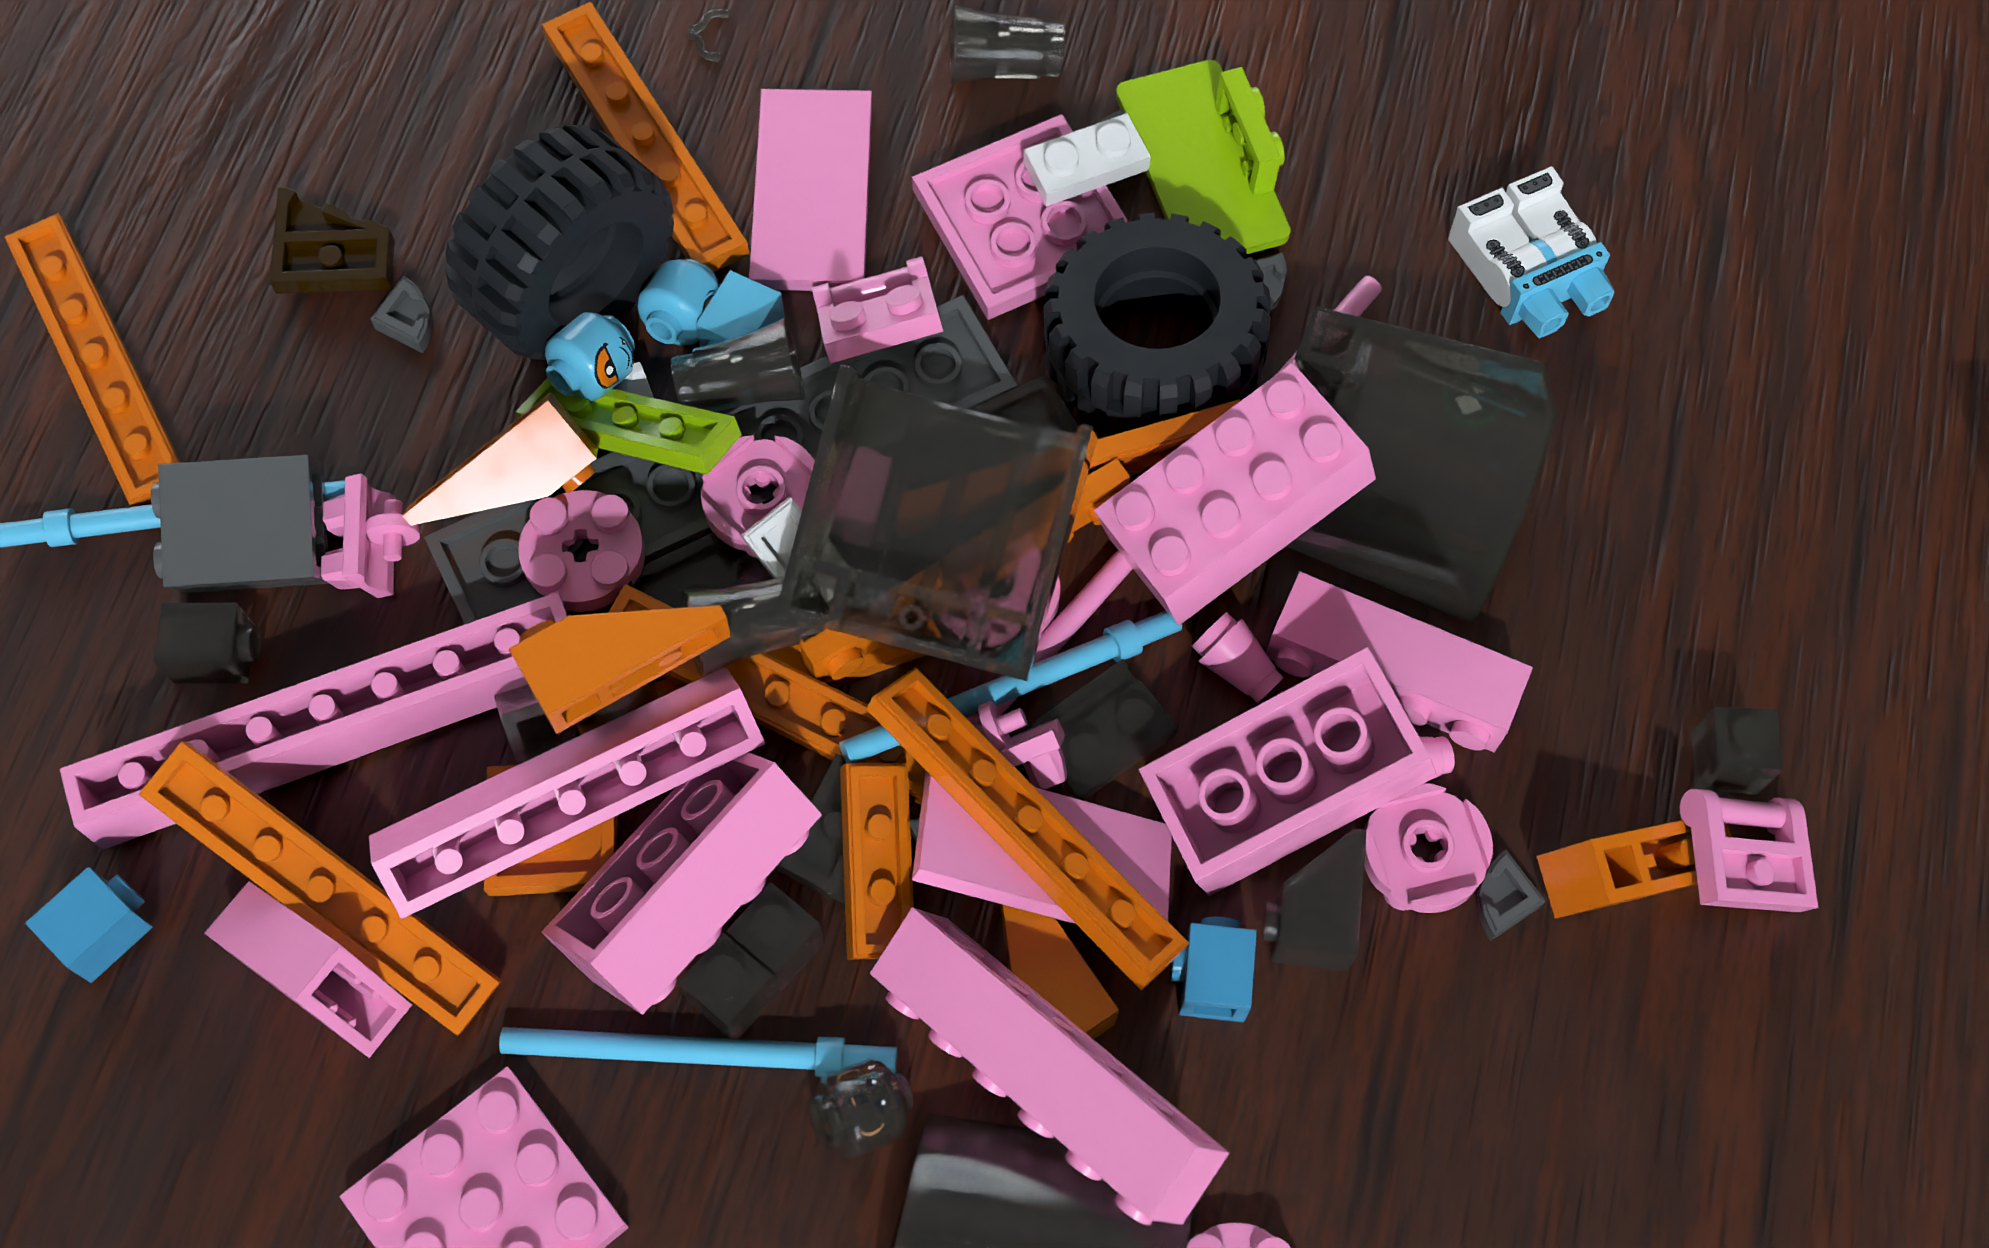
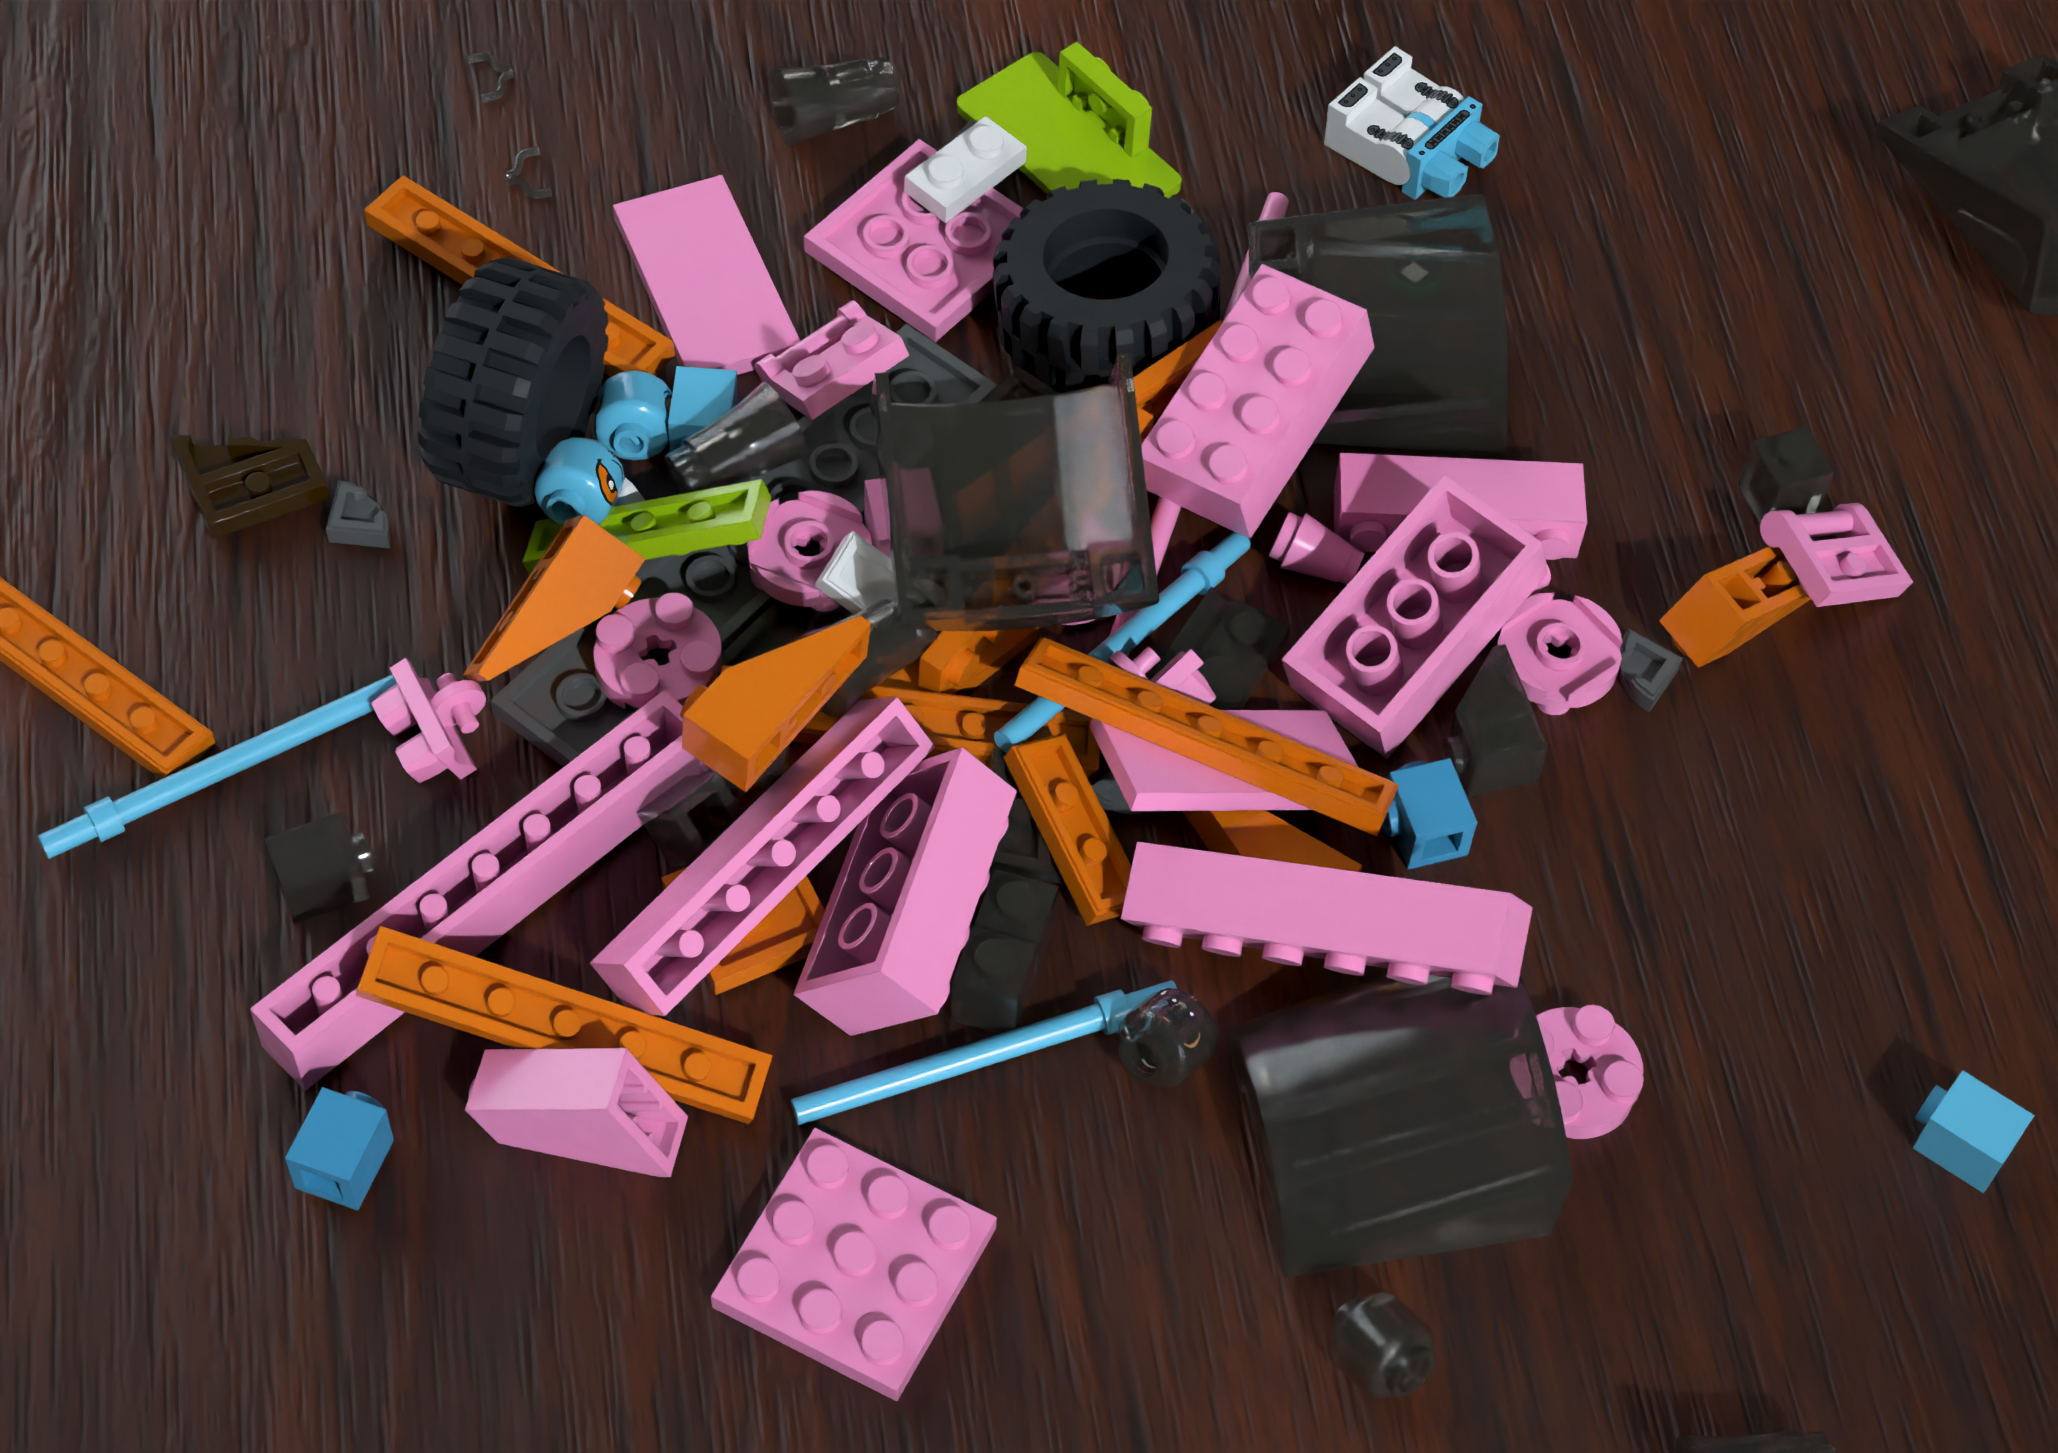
camera: 25 degrees left, 10 degrees down
(240, 523) = (303, 746): dark grey brick -> none

